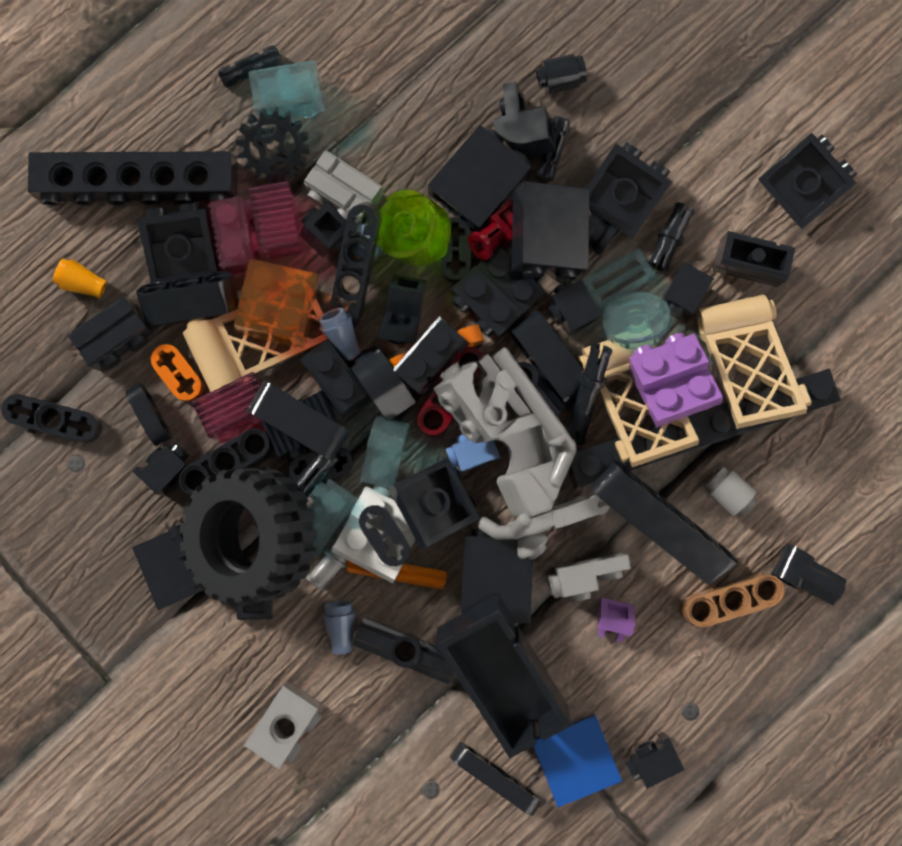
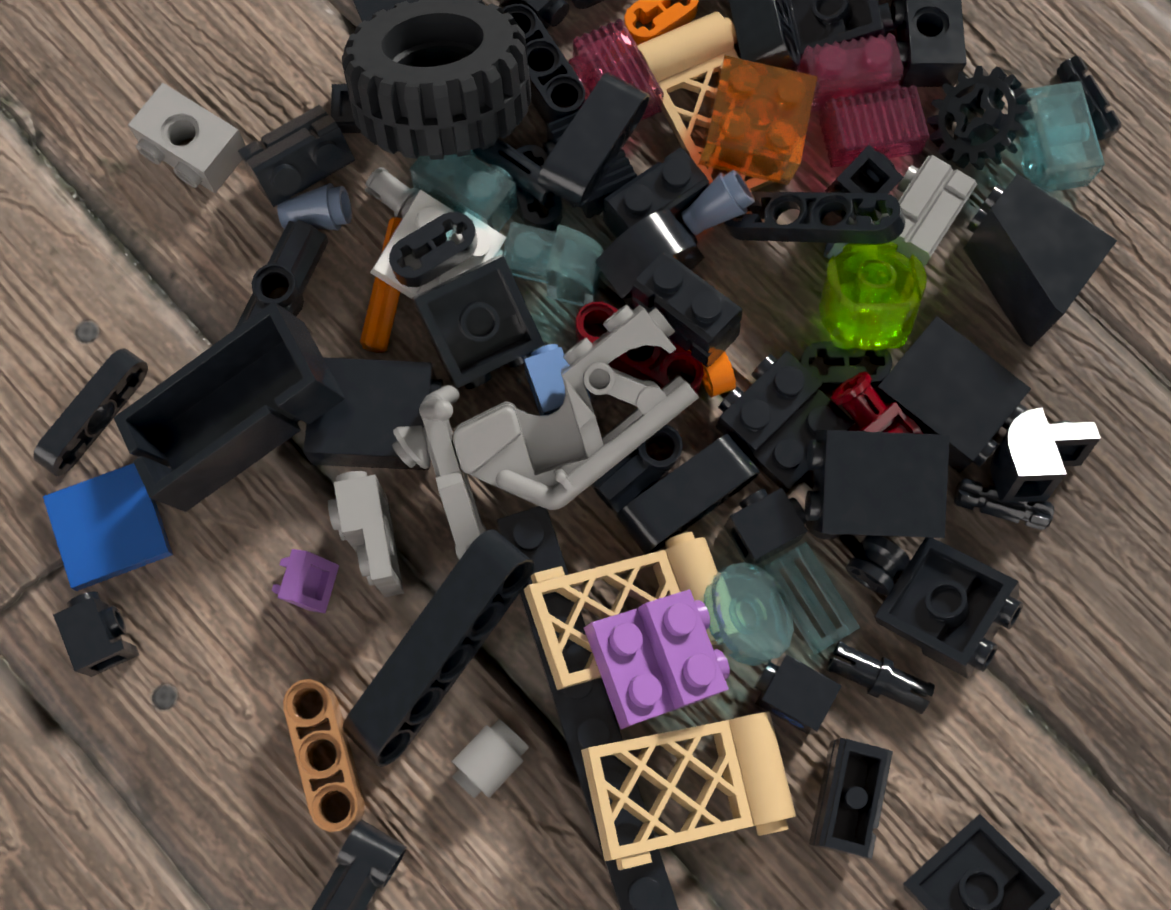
camera: 85 degrees right, 10 degrees down
(300, 641) = (297, 155): none -> black brick
(384, 114) = (1033, 254): none -> black slope
(403, 310) = (764, 289): black brick -> none
(561, 73) = (1120, 514): black brick -> none
(591, 382) = (653, 539): black pin -> none

